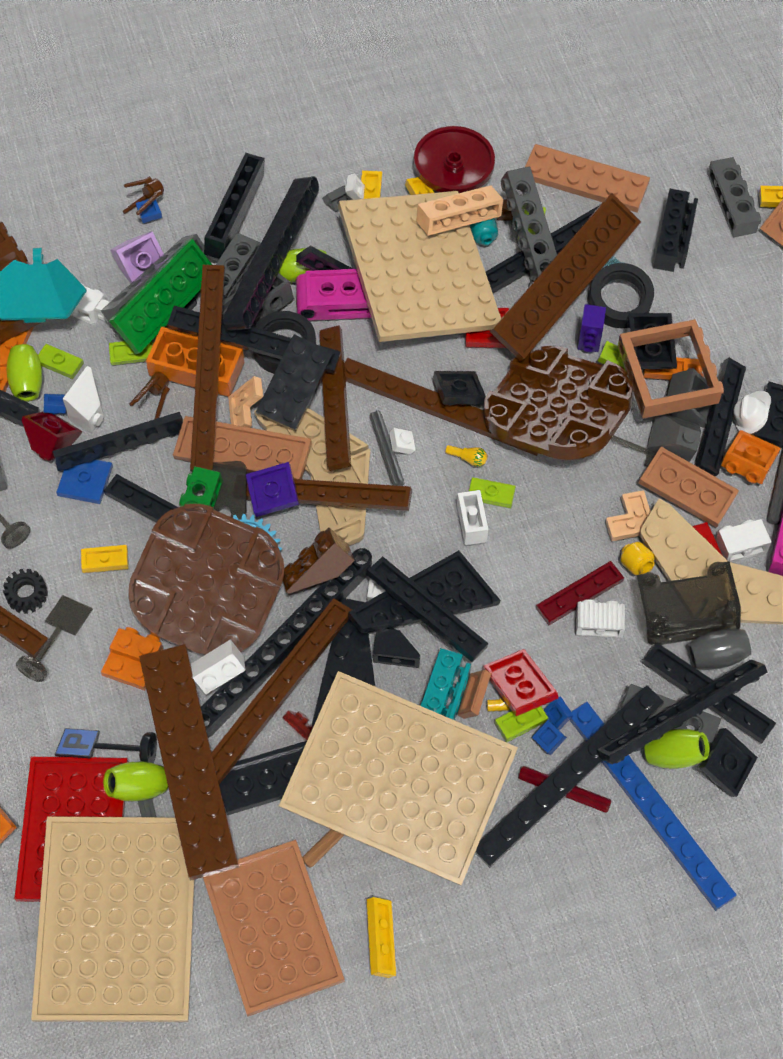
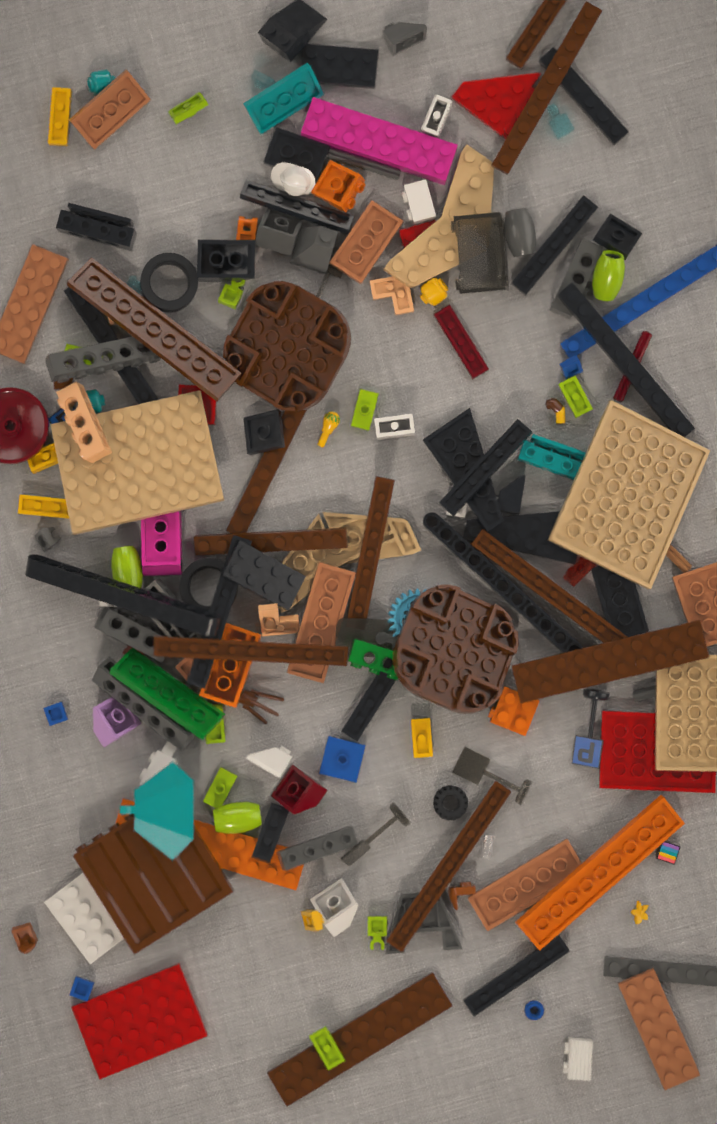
camera: 80 degrees left, 25 degrees up
(54, 403) = (267, 789): blue plate -> none
(117, 441) = (315, 738): black plate -> none
(135, 781) = (627, 702): lime piece -> none
(152, 189) = (34, 711): reddish brown plant -> none
(218, 667) = (529, 638): white brick -> none
(234, 205) = (62, 631): black brick -> none
(272, 489) = (367, 595): dark purple plate -> none
(318, 260) = (135, 557): black plate -> none
(320, 562) = (438, 556): reddish brown slope -> none
(354, 187) = (44, 519): white plate -> none
(386, 448) = (320, 497): dark grey axle -> none
(402, 441) = (313, 484): white plate -> none
(474, 694) = (553, 432): nougat tile -> none
(520, 682) = (545, 395): tile -> none
(549, 737) = (591, 375): blue plate -> none
(591, 328) = (208, 311): dark purple brick -> none
(600, 619) = (489, 327): white brick -> none
(674, 403) = (268, 277): nougat window -> none
(681, 711) = (580, 267): black plate -> none
(734, 197) = (50, 177): dark grey brick -> none

